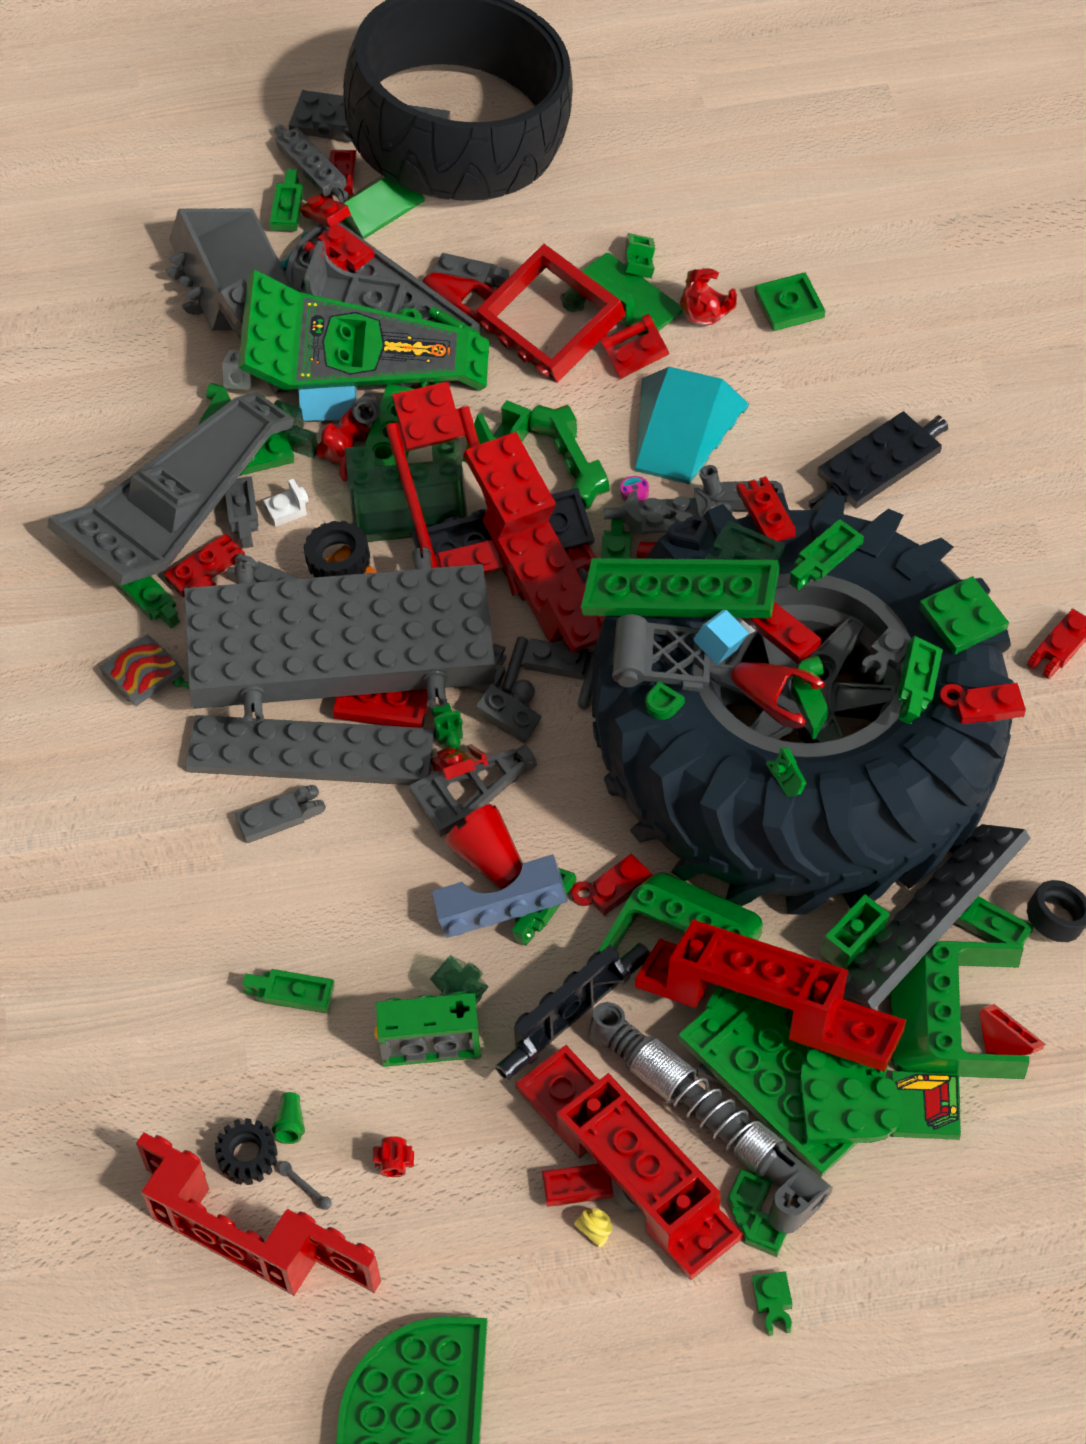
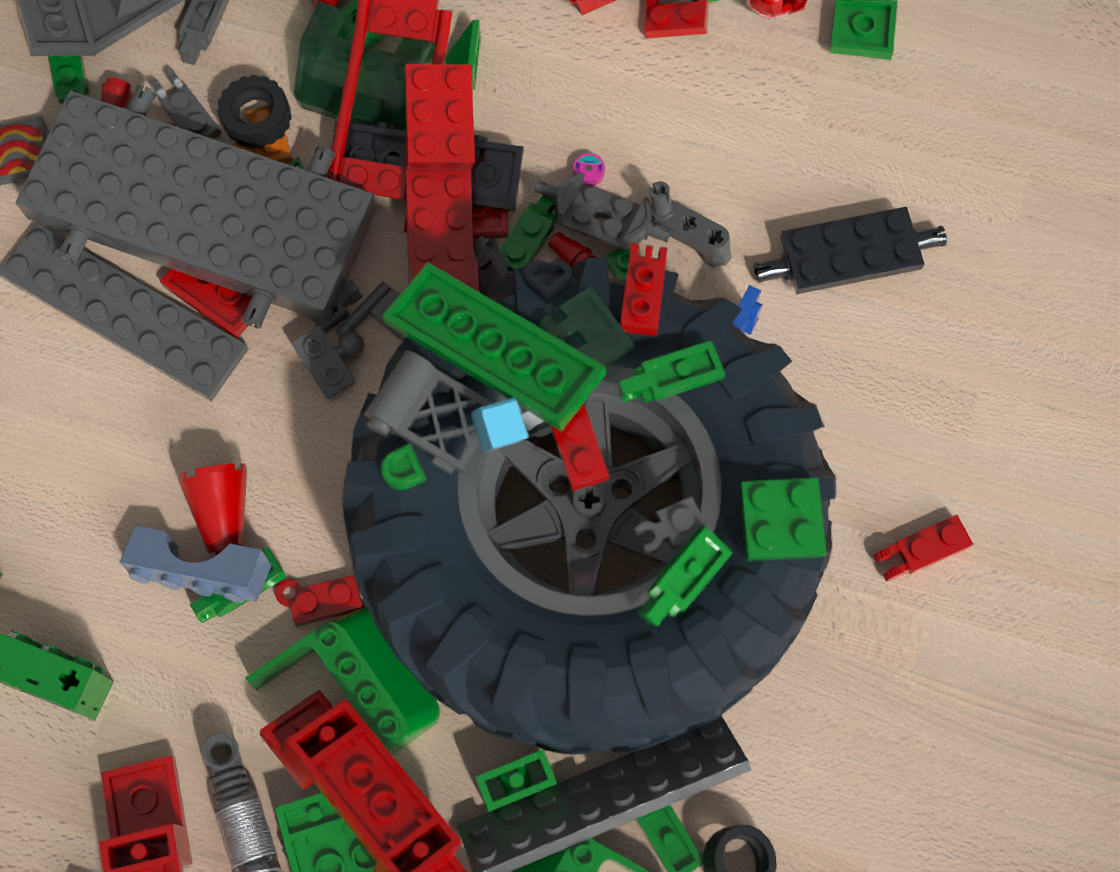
camera: 25 degrees right, 15 degrees up
(206, 562) = (138, 63): red hinge -> none
(279, 813) = (53, 365): dark grey hinge -> none
(287, 505) = (247, 35): white bracket -> none
(441, 807) = (204, 433): dark grey plate -> none
(447, 726) = (259, 348): green piece -> none
(454, 762) = (241, 394): red plate -> none
(459, 976) = (107, 637): clear green brick -> none
(514, 419) = (510, 47): green panel -> none
(562, 426) = (548, 139): green plate -> none
(568, 1003) = (174, 720): black plate -> none
(683, 422) = (678, 117): teal wedge -> none
(765, 683) = (519, 500): red animal -> none
(787, 773) = (480, 614): green piece -> none
(810, 701) = (557, 536): green piece -> none
(985, 703) = (745, 638): red hinge -> none

